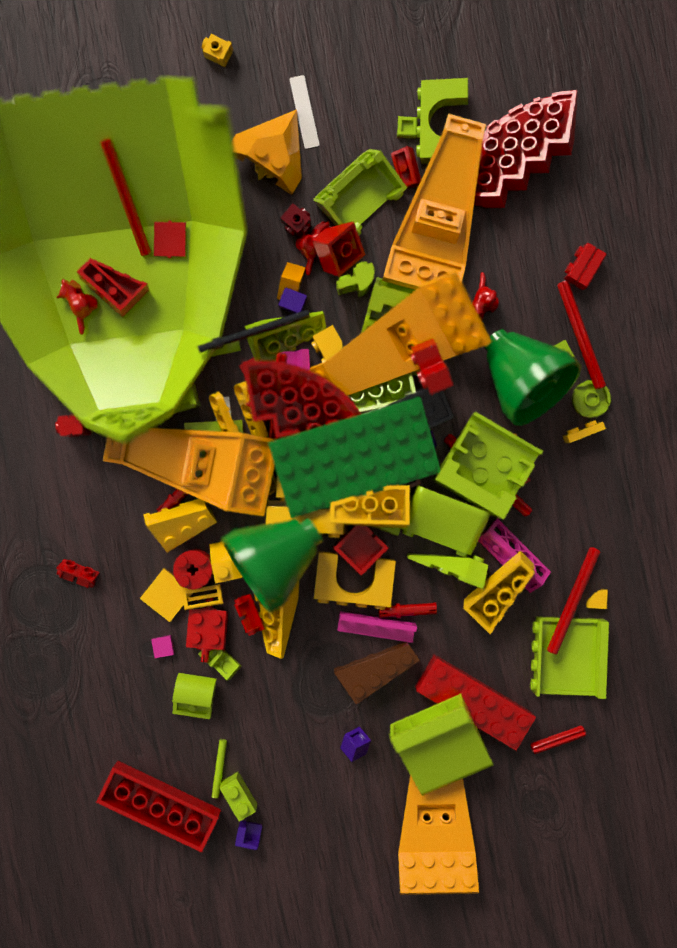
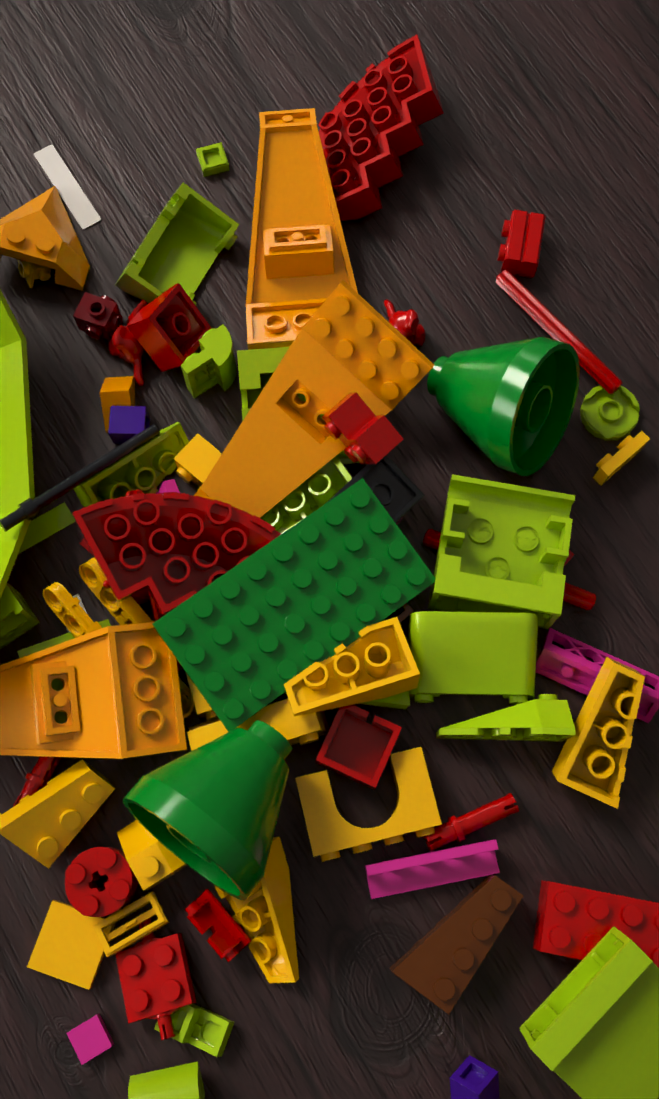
camera: 20 degrees left, 15 degrees down
(406, 166) = (228, 200): red slope -> none
(433, 96) = (235, 108): lime arch -> none

